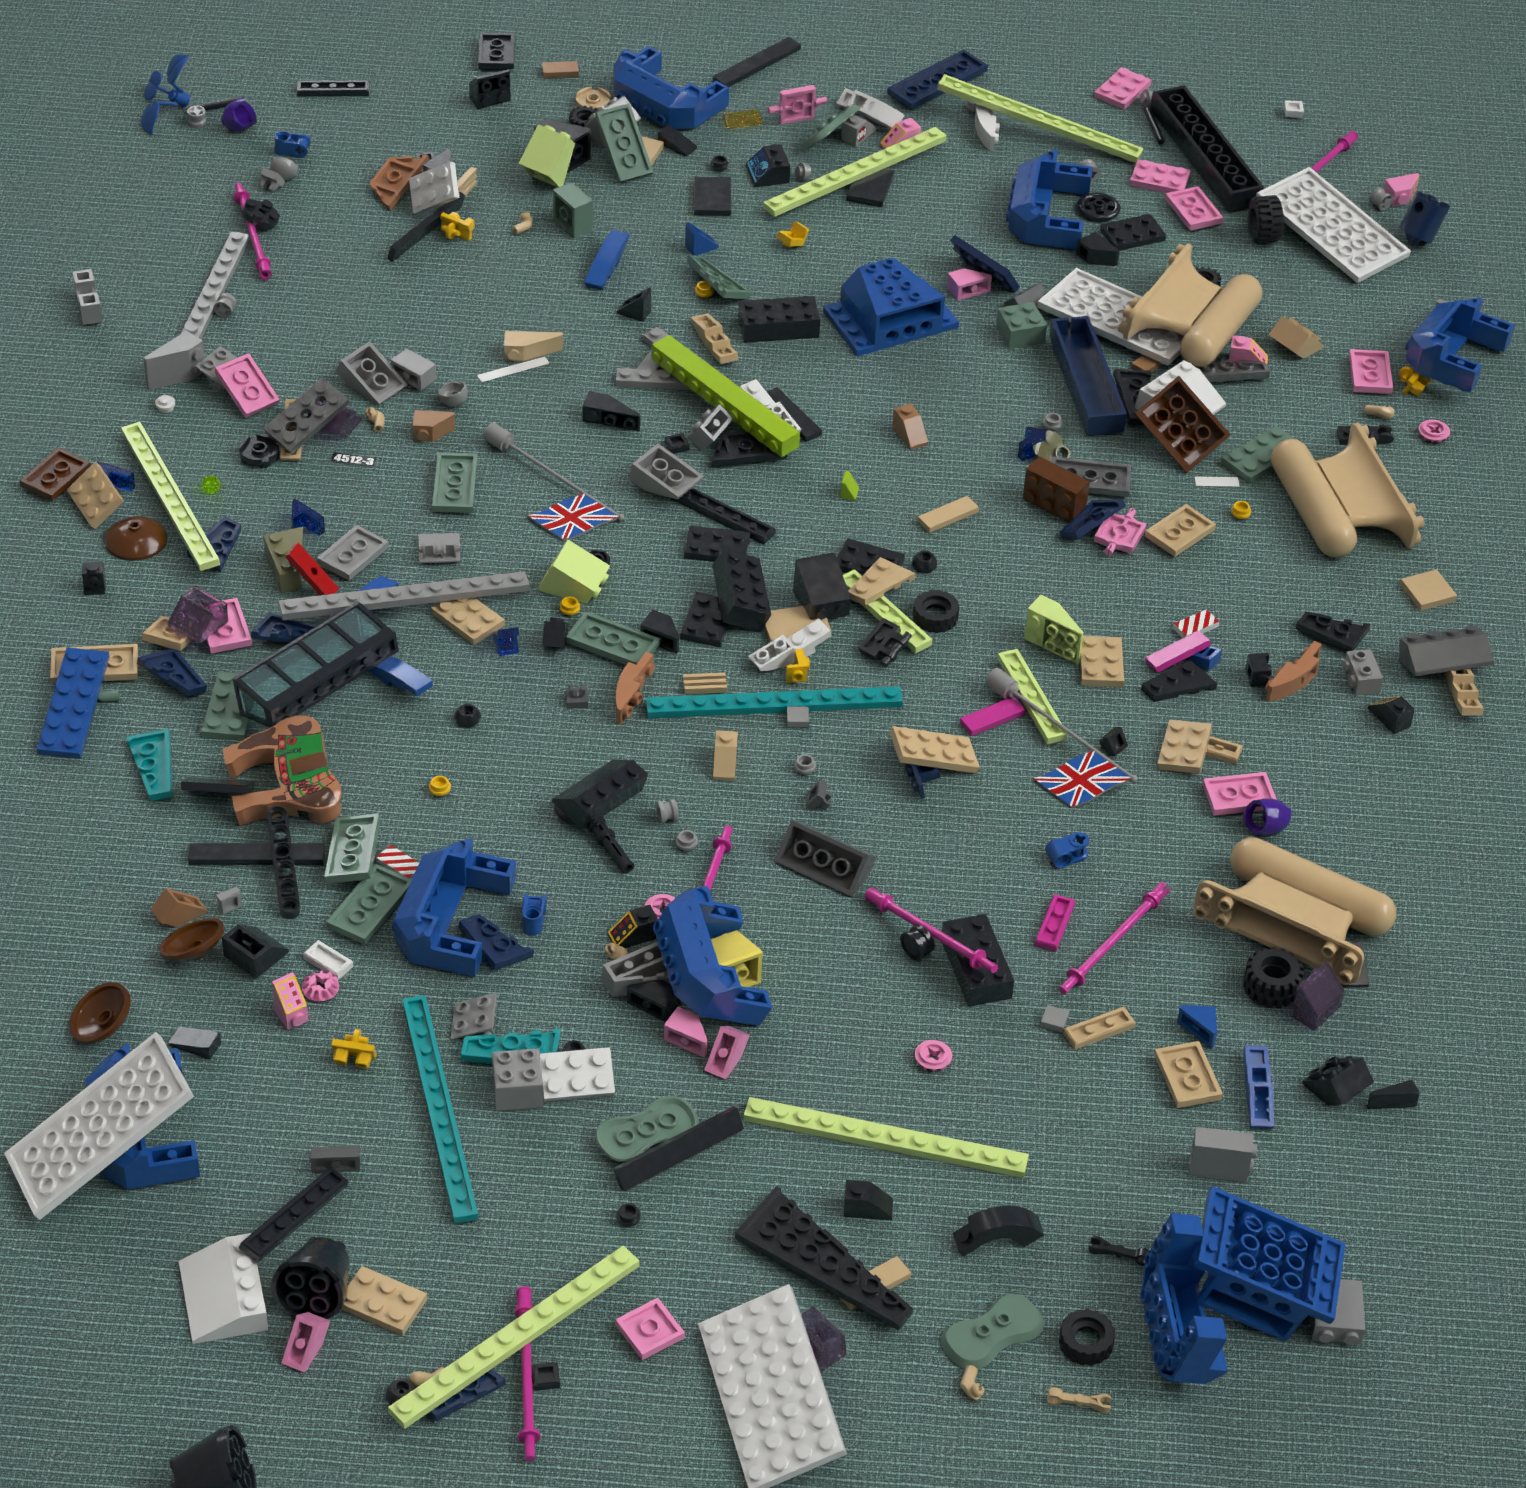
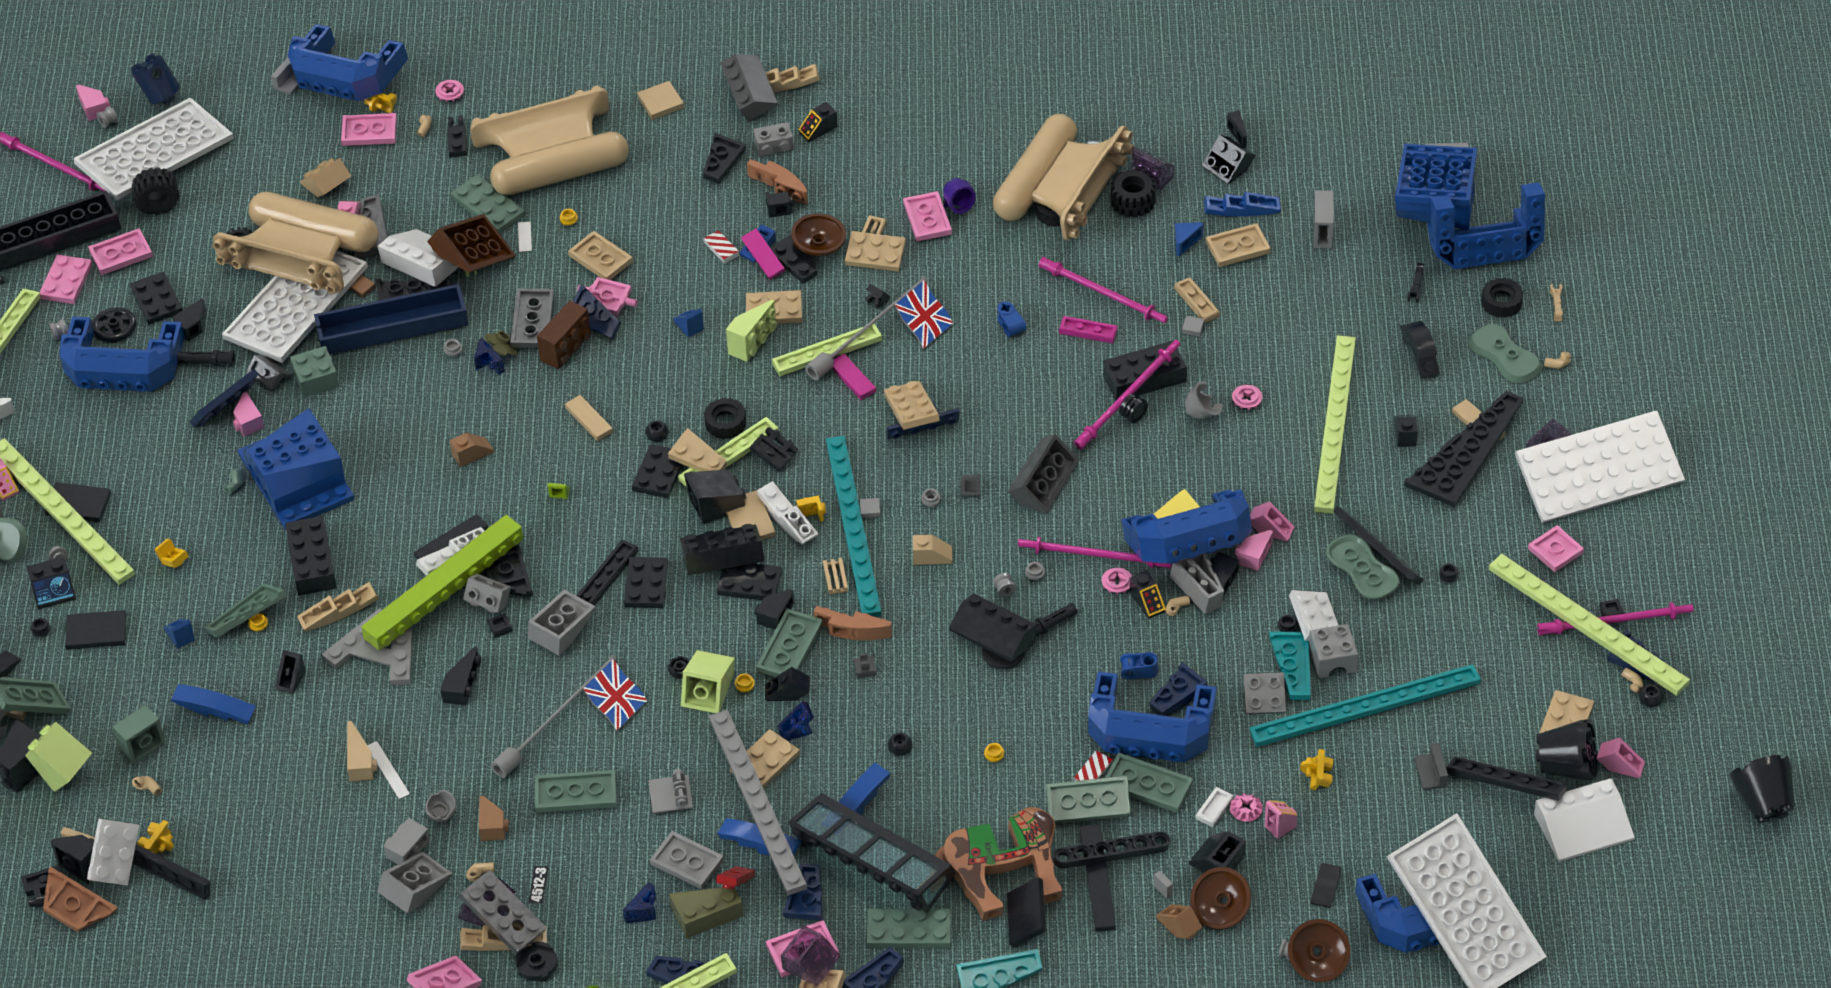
camera: 90 degrees left, 5 degrees up
(916, 1001) = (1199, 404): none -> light grey helmet
(1047, 265) = (216, 357): none -> black pin
(1078, 591) = (690, 322): none -> blue slope
(1202, 693) = (818, 234): none -> reddish brown dish

